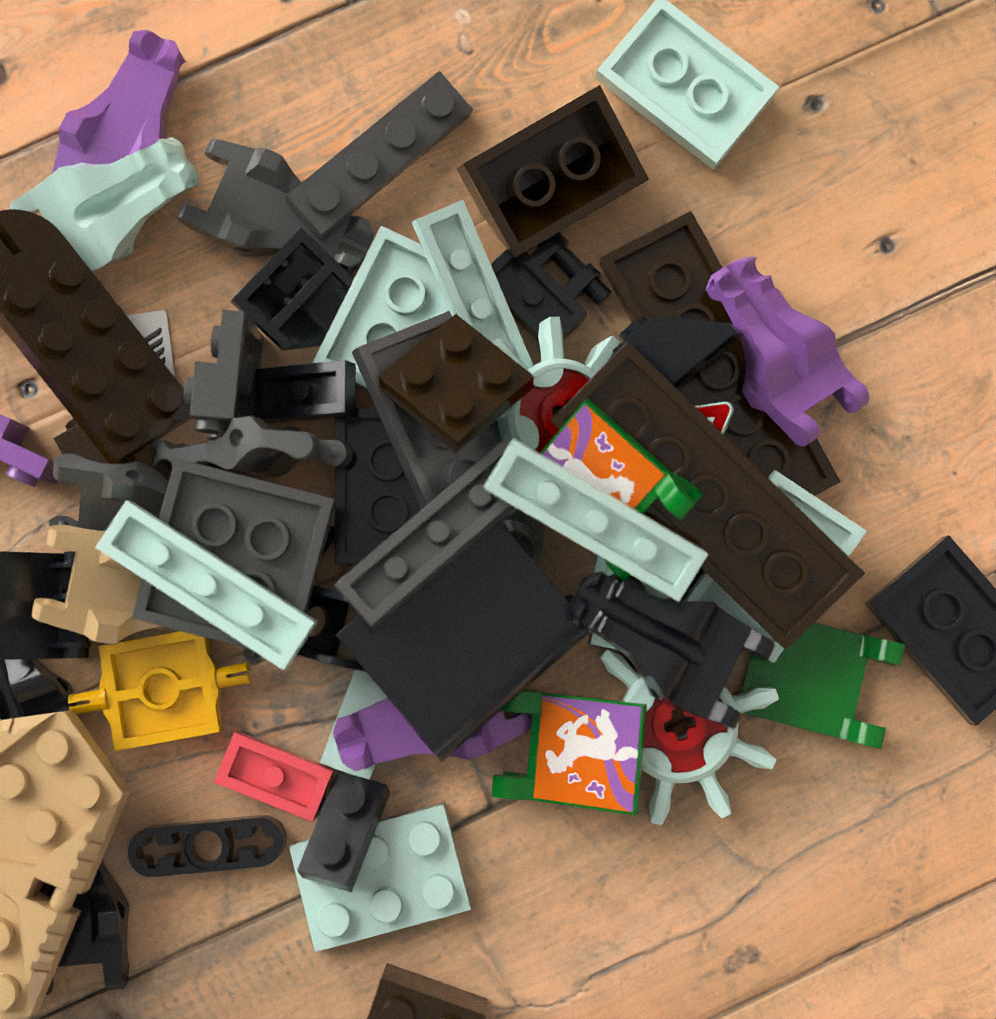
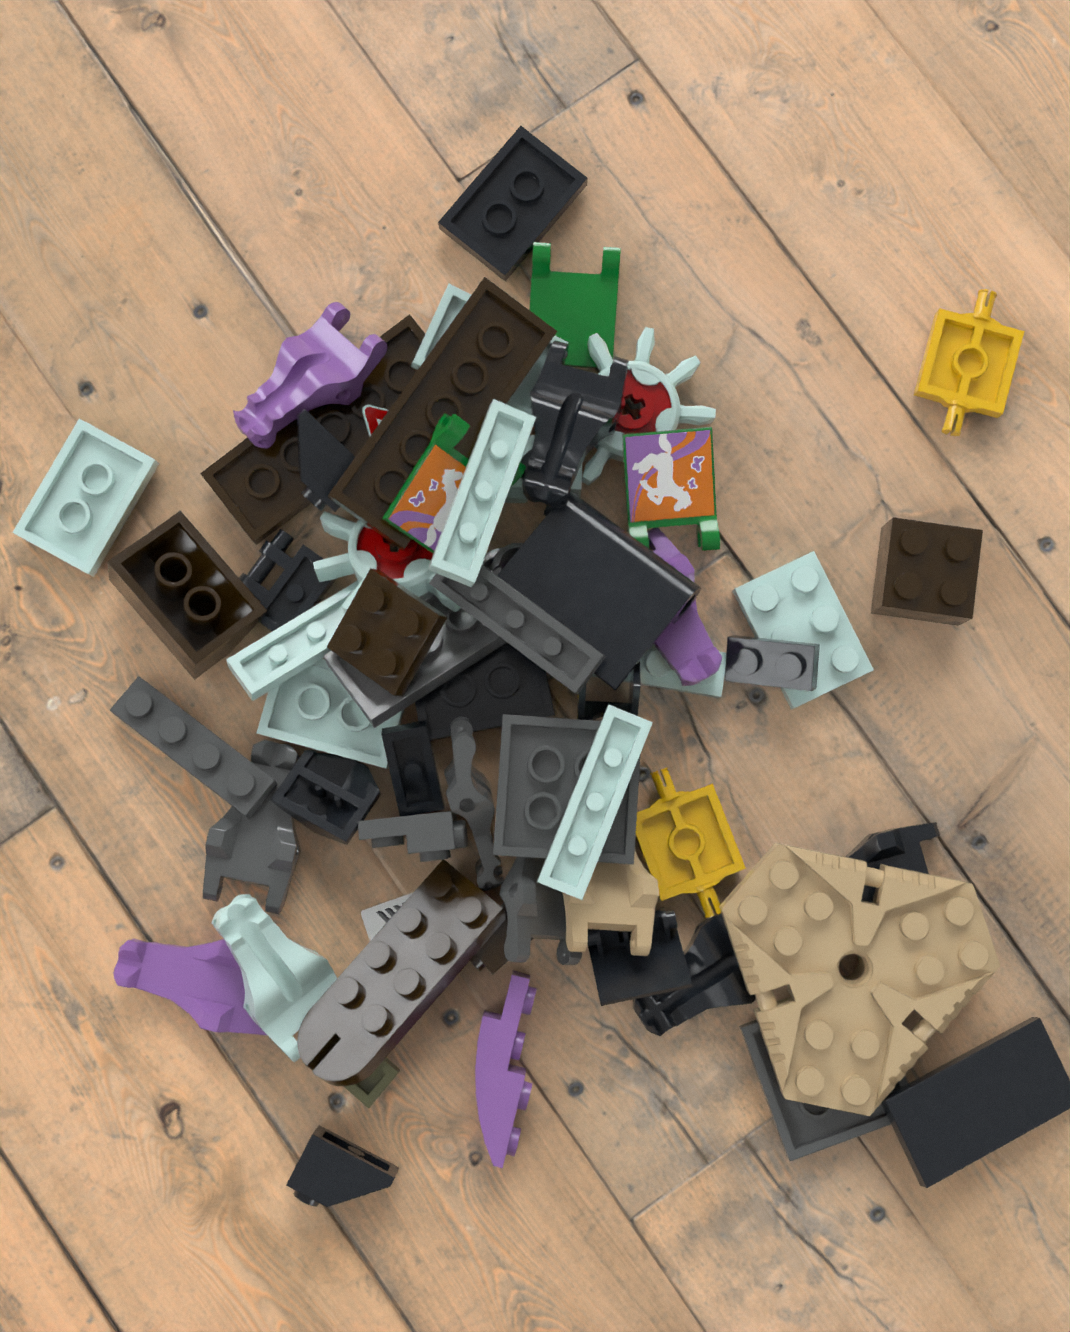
camera: 100 degrees left, 0 degrees up
(168, 835) = (807, 811): black beam -> none
(274, 776) = (739, 731): coral plate -> none

